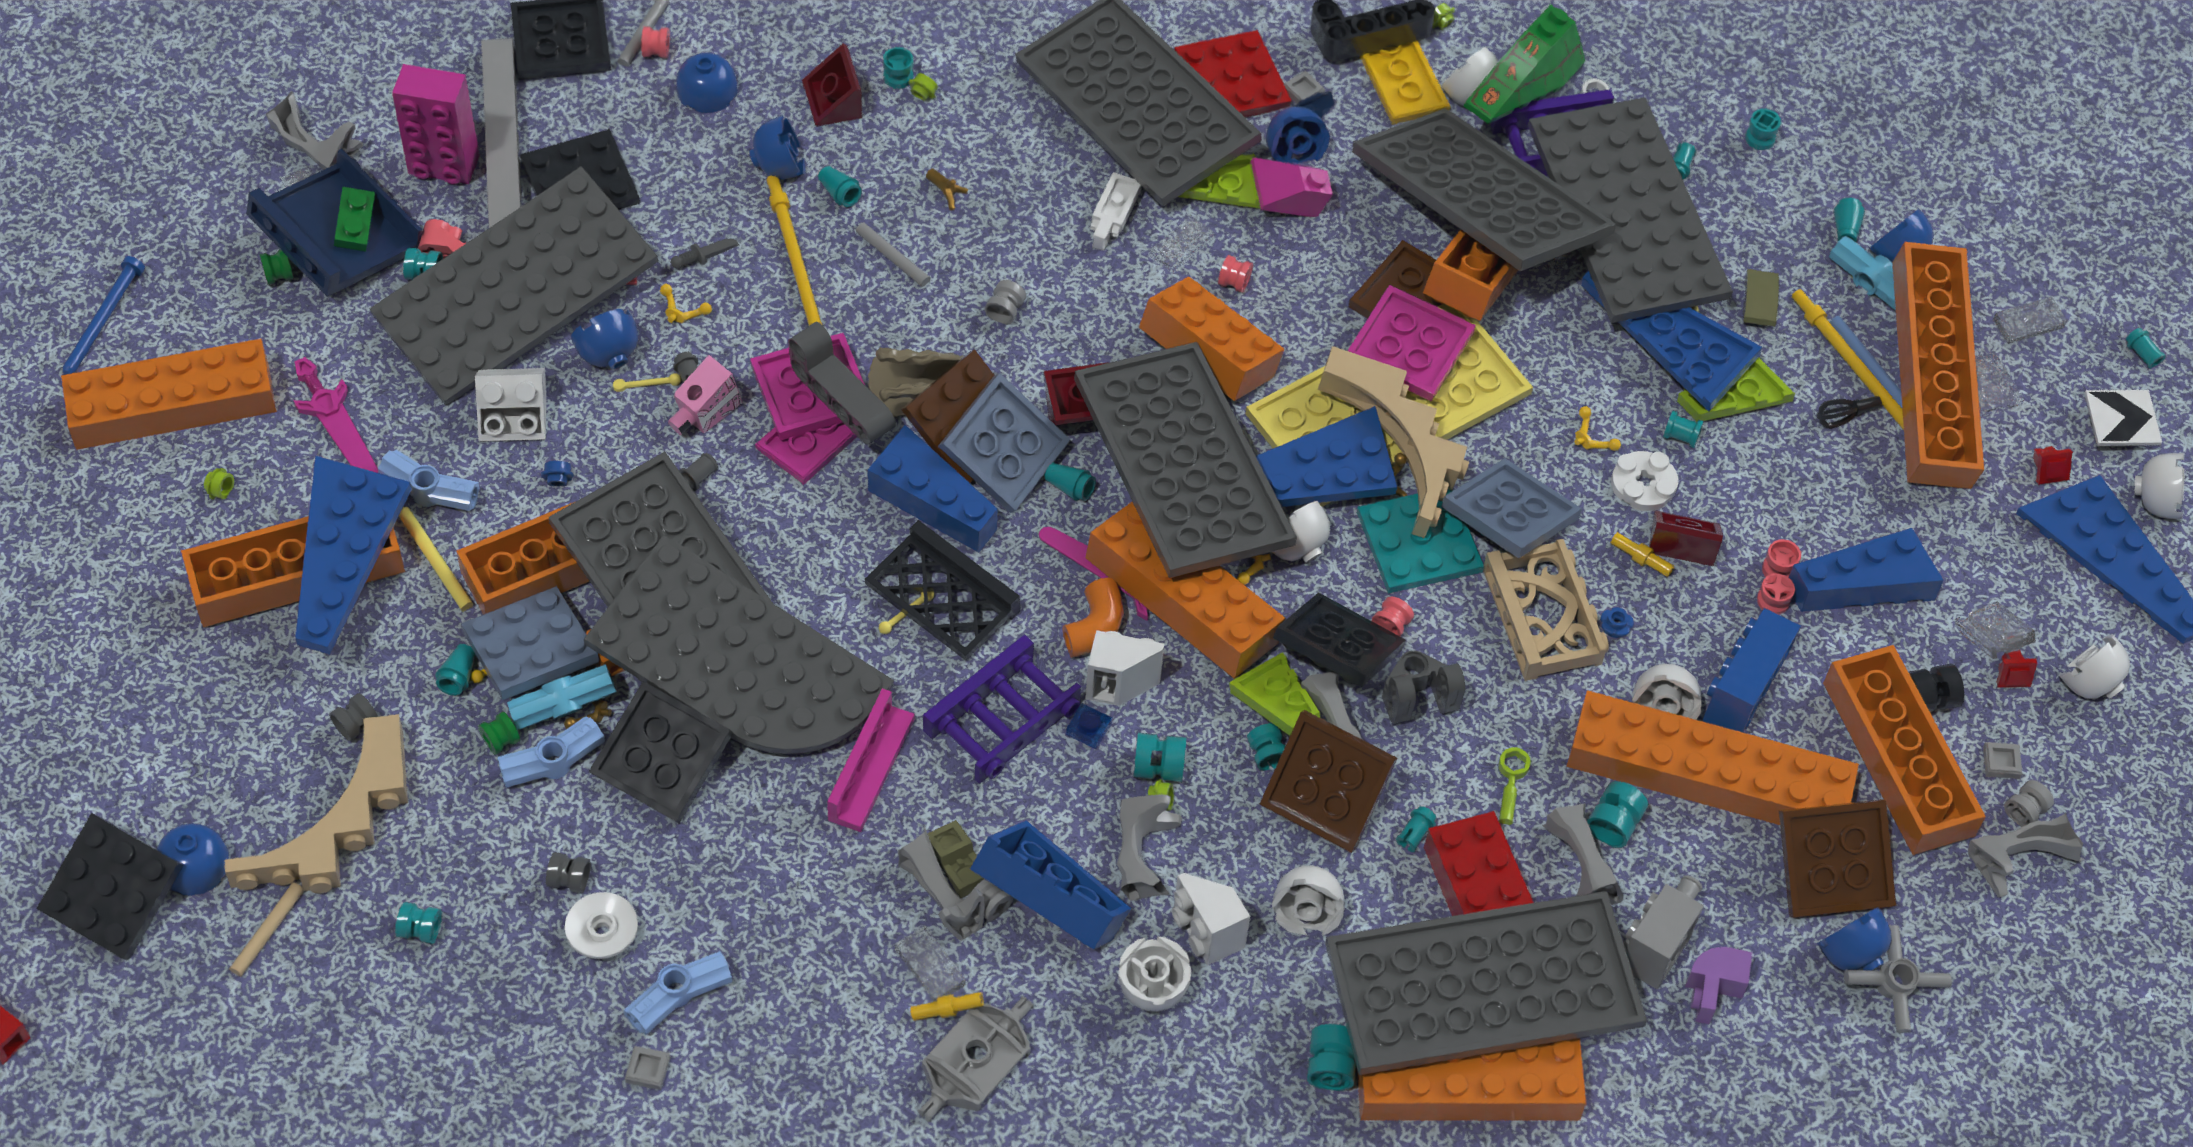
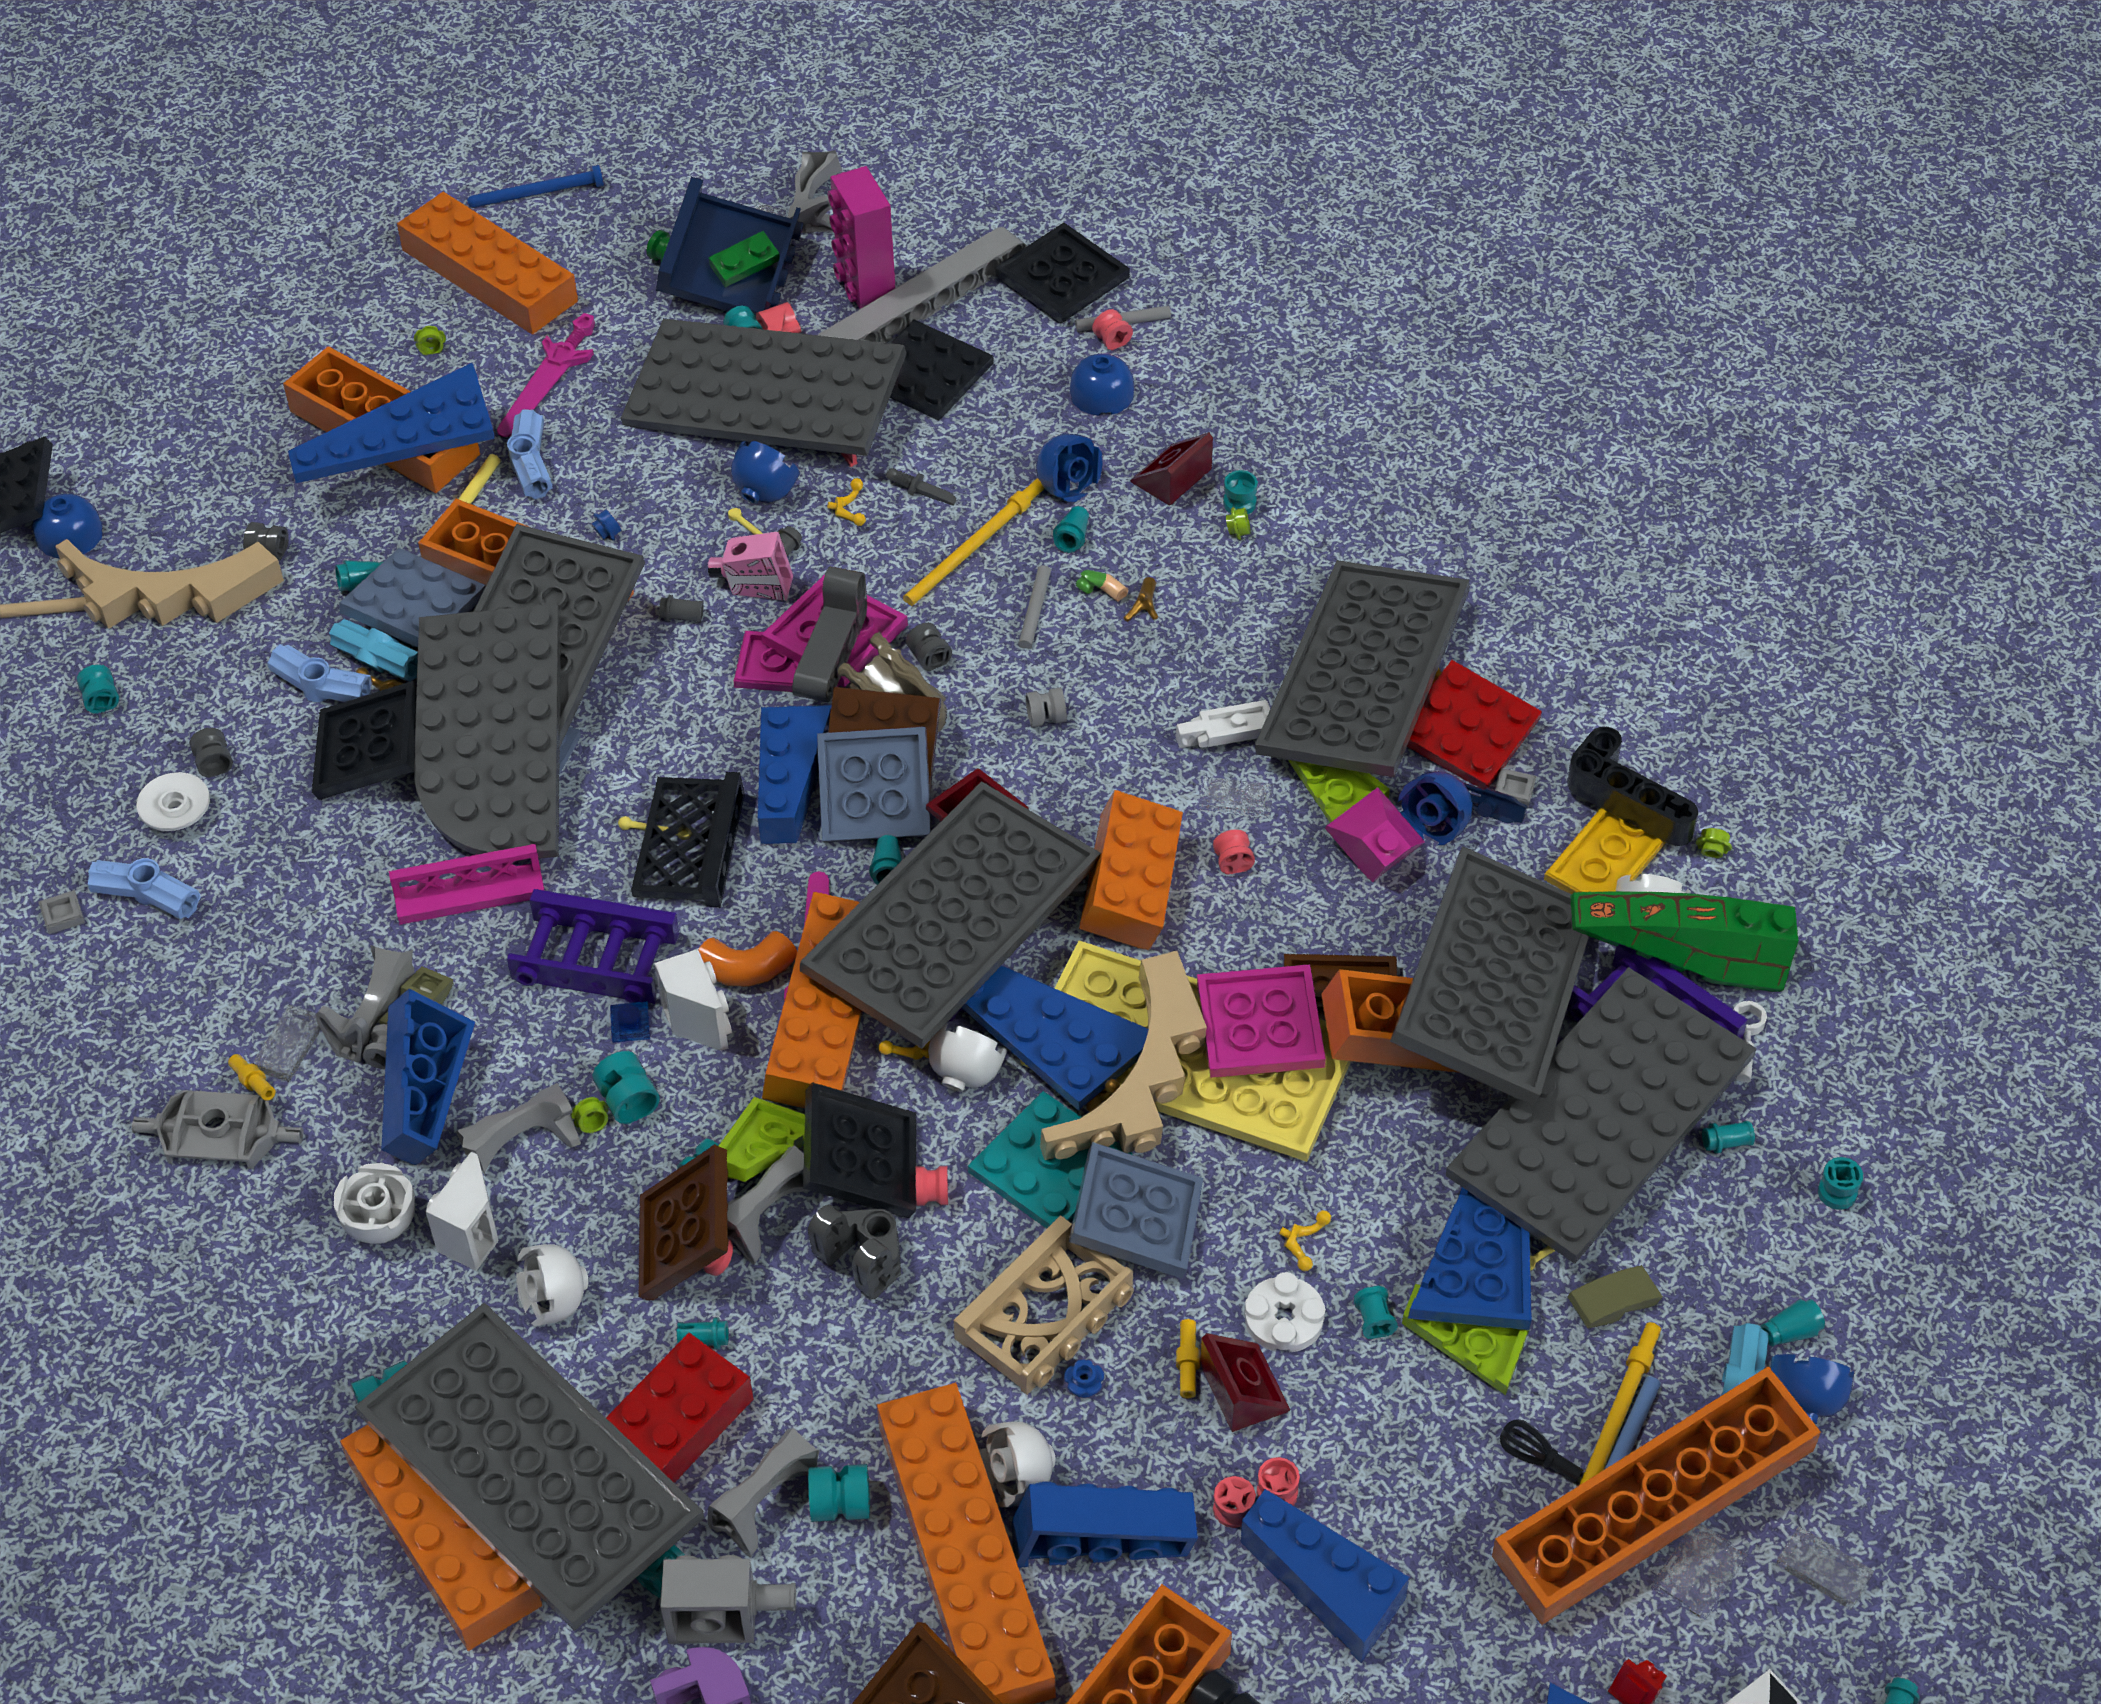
camera: 60 degrees right, 5 degrees down
(499, 733) = (314, 634): green wheel -> none
(511, 404) = (650, 455): white slope -> none
(881, 336) = (928, 646): none -> dark grey wheel
(908, 198) = (1103, 581): none -> arm
(1510, 790) = (810, 1391): lime piece -> none

